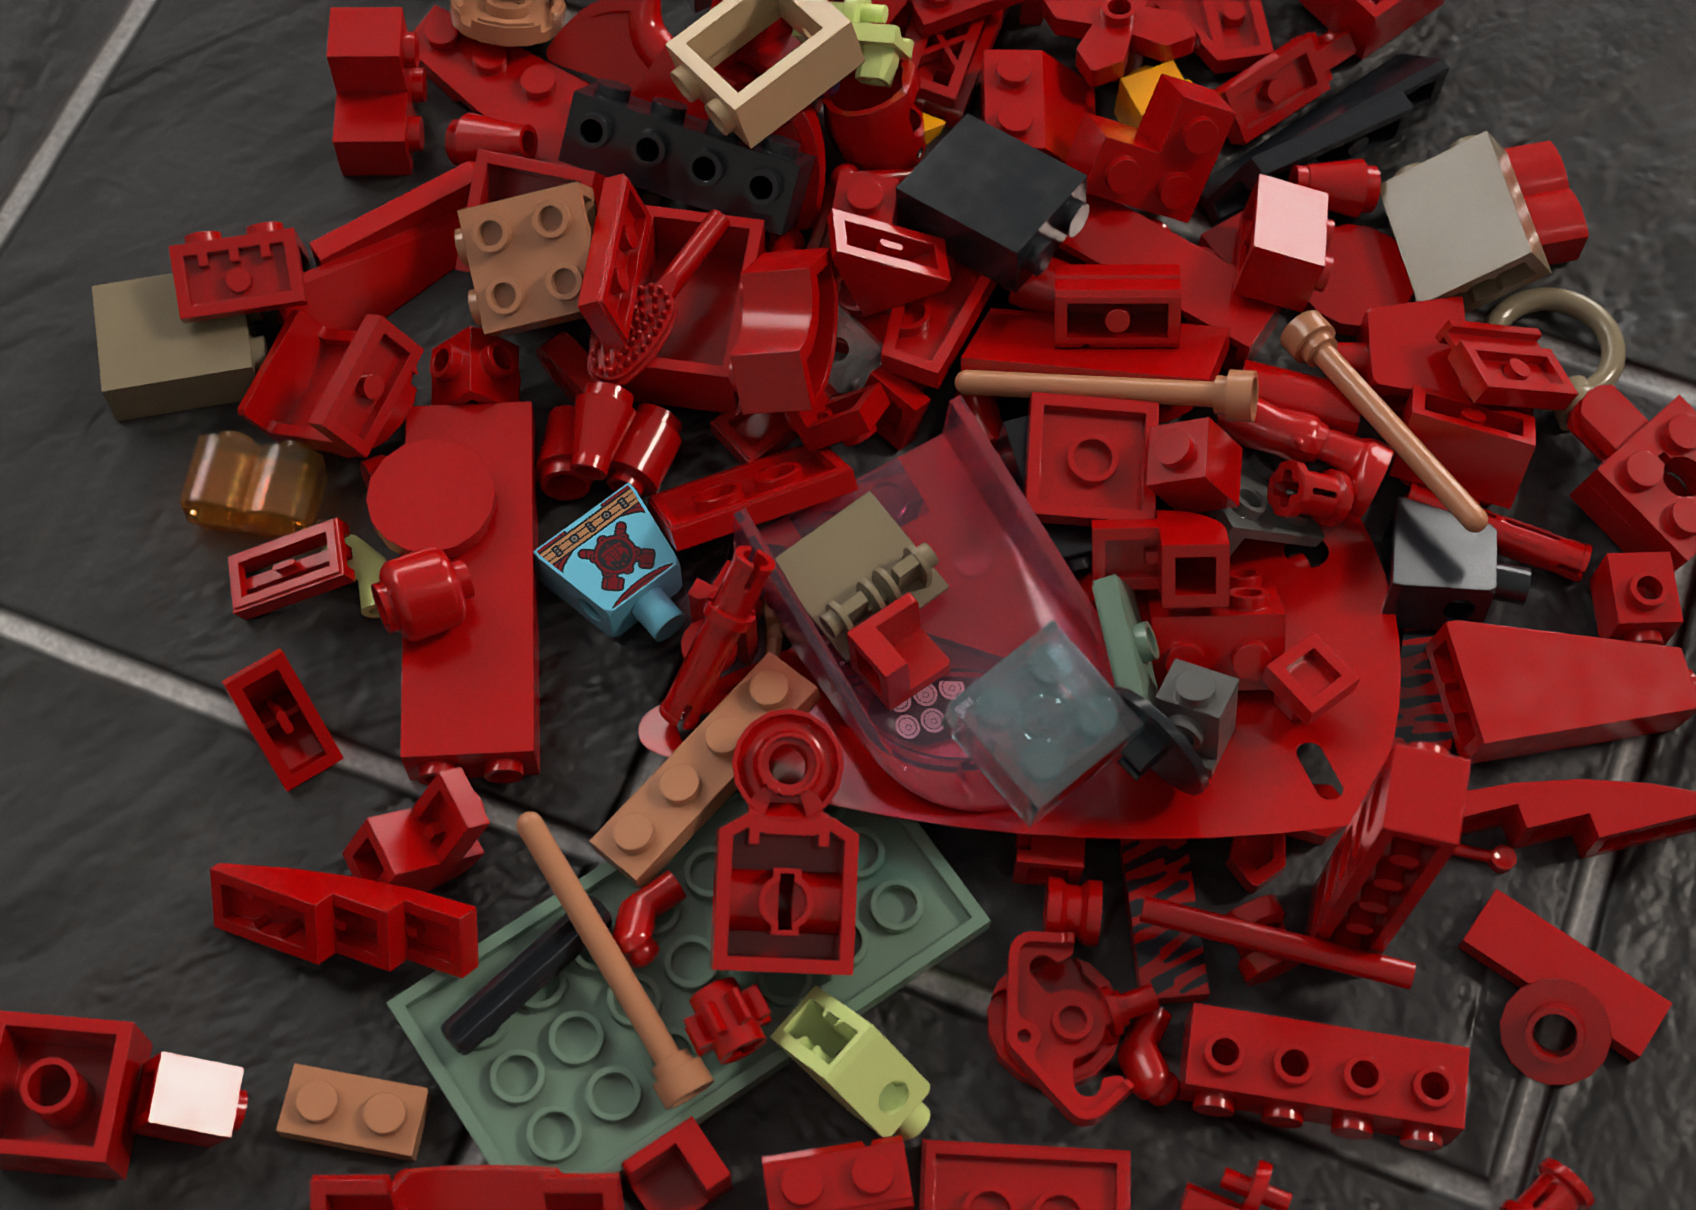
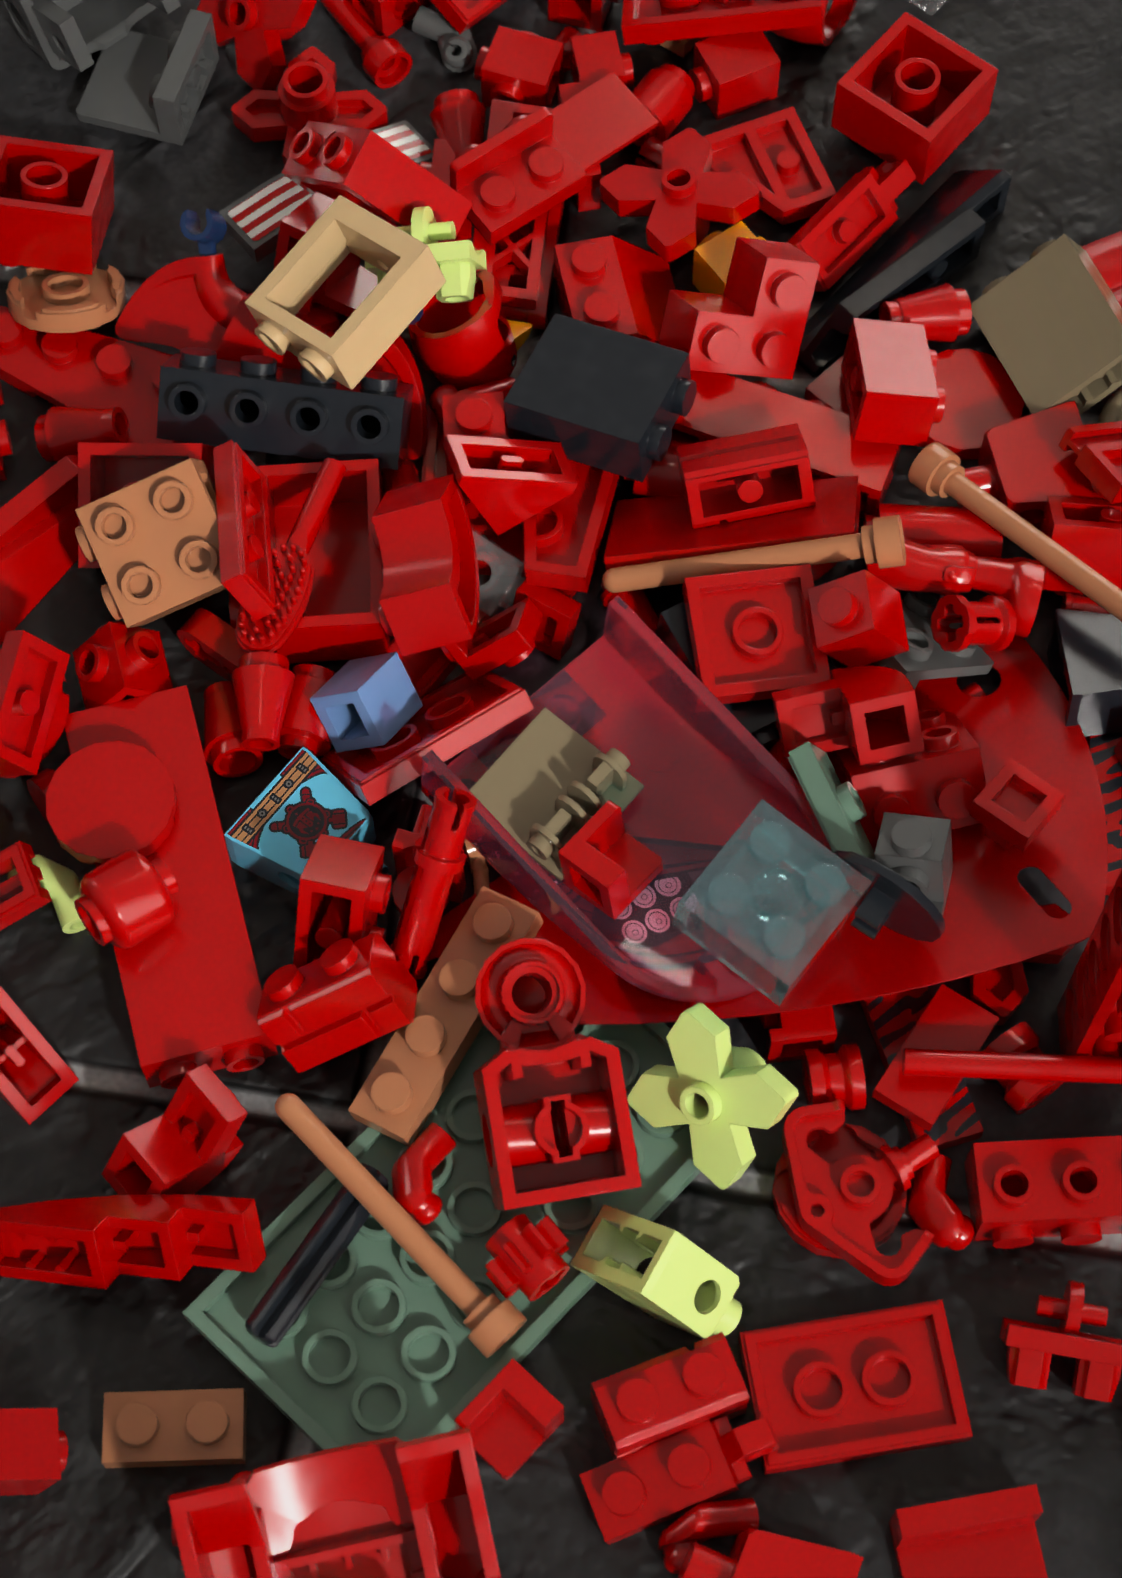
camera: 10 degrees left, 0 degrees up
(602, 733) = (337, 1001): none -> red brick
(623, 651) = (339, 896): none -> red brick
(700, 452) = (366, 702): none -> medium blue brick
(947, 898) = (715, 1092): none -> yellowish green plant
(1196, 881) = (946, 1024): none -> red tile

